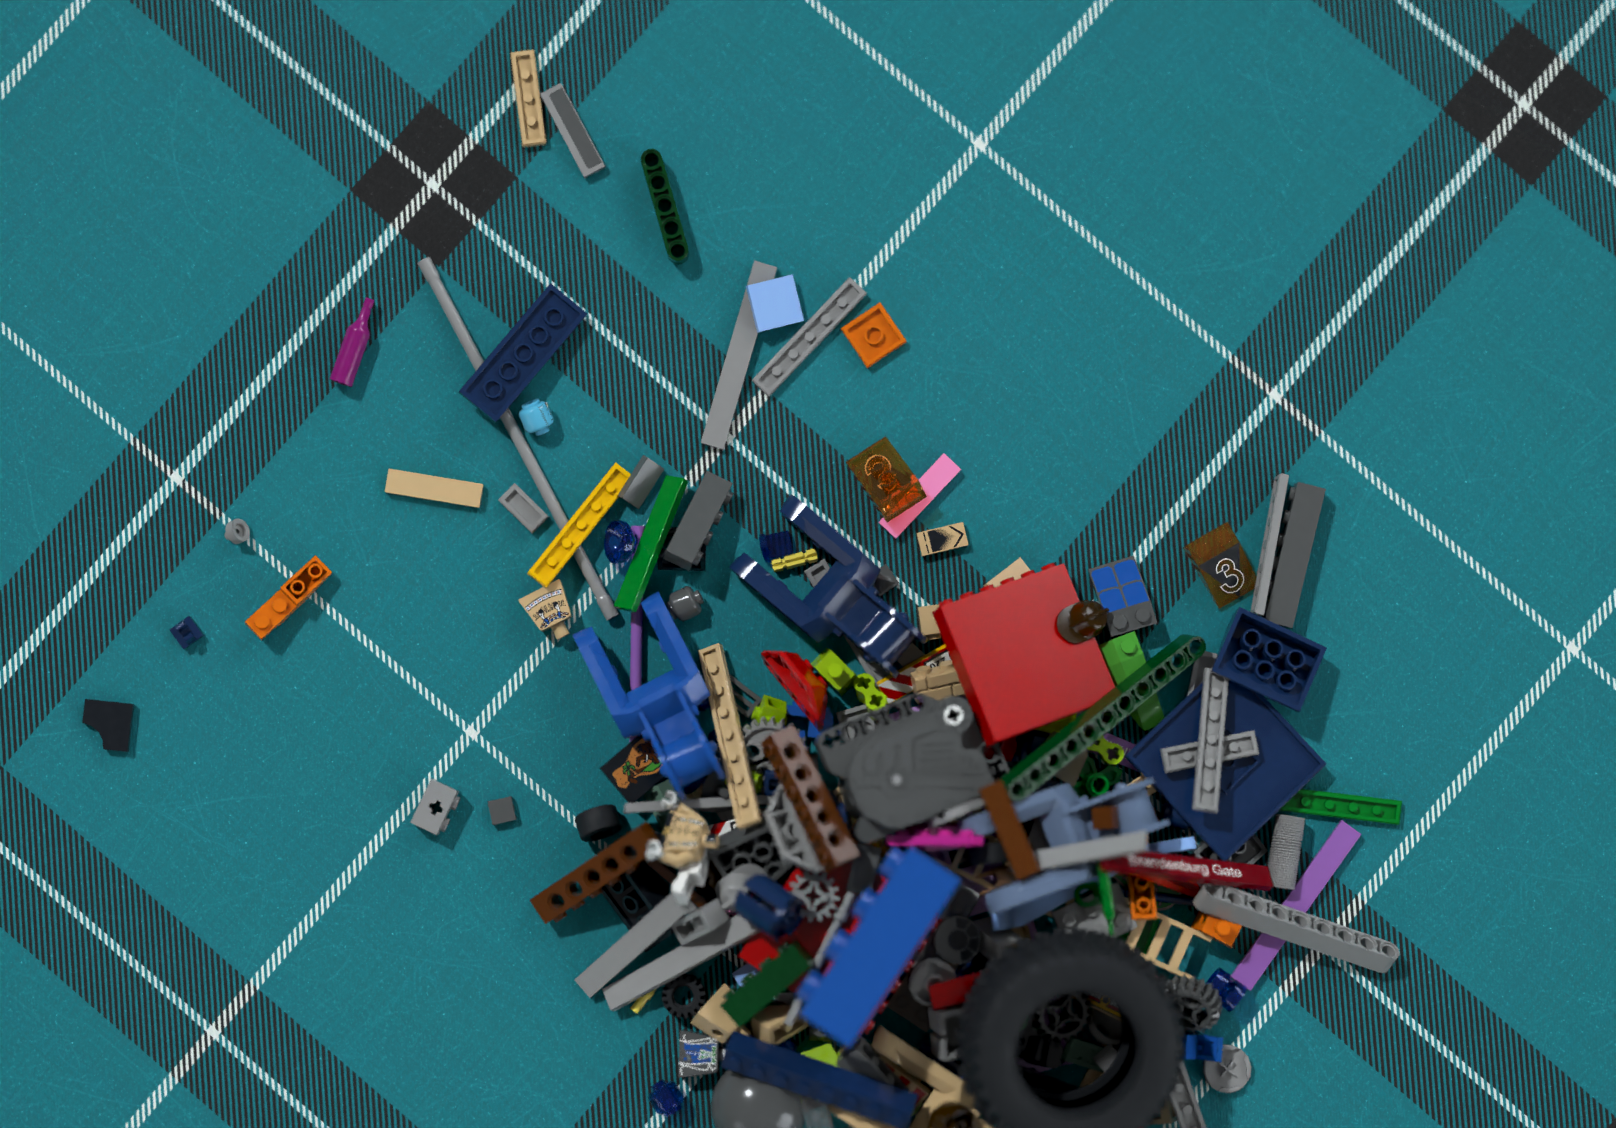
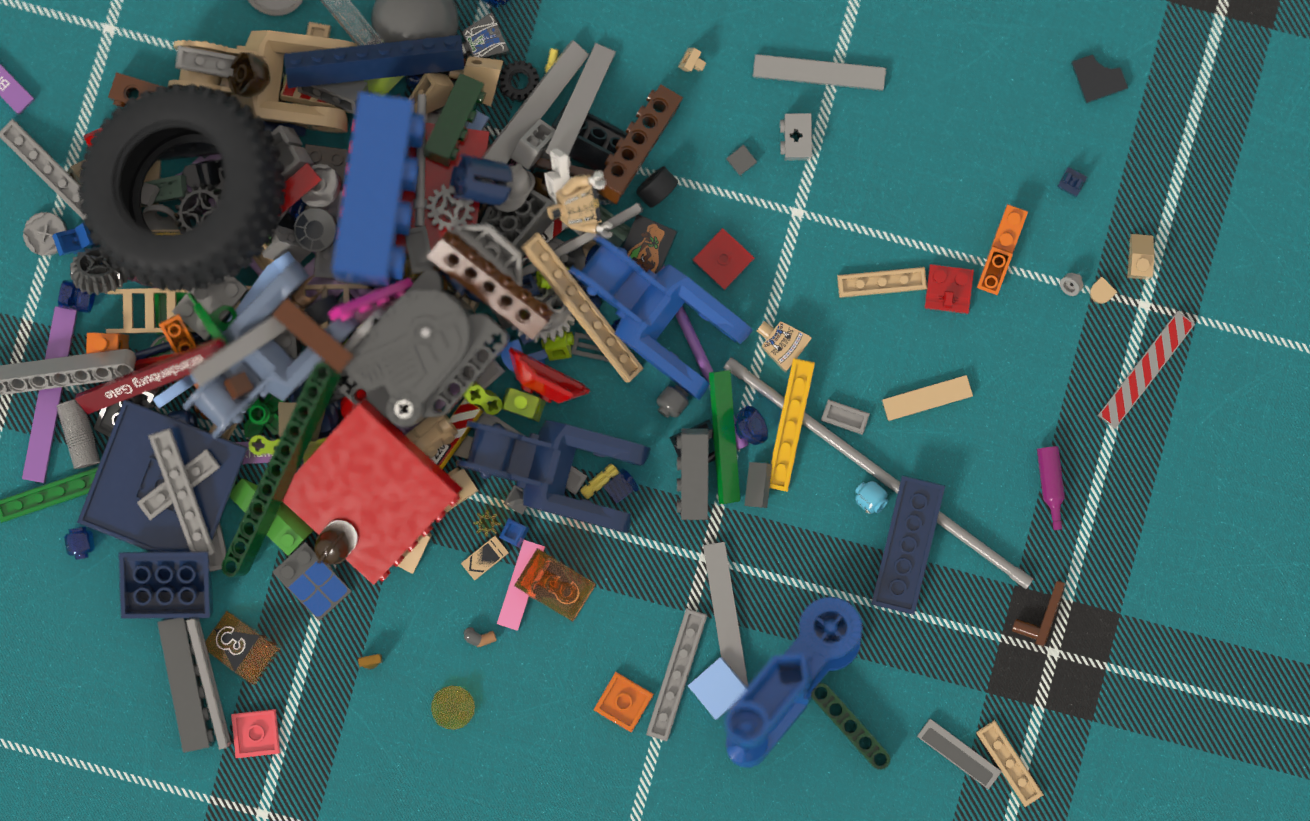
camera: 170 degrees right, 0 degrees up
(155, 525) = (1141, 257): none -> tan slope
(206, 413) = (1146, 369): none -> tile
(211, 510) = (1102, 291): none -> tan tile
(360, 585) = (949, 289): none -> red hinge
(382, 861) = (819, 72): none -> light grey tile
(422, 623) = (882, 282): none -> tan tile
(435, 206) = (1042, 633): none -> reddish brown piece
(503, 933) = (691, 60): none -> tan tile
(567, 721) = (723, 259): none -> red plate
(648, 296) = (782, 690): none -> blue arm
(902, 549) = (514, 532): none -> blue tile
(927, 565) = (480, 523): none -> clear yellow gear
(986, 462) = (477, 639): none -> arm
(1042, 408) = (452, 707): none -> clear yellow dish
(1101, 491) = (370, 662): none -> pearl gold tile
(1246, 475) = (255, 733): none -> coral tile
(1333, 743) = (79, 542): none -> clear blue head

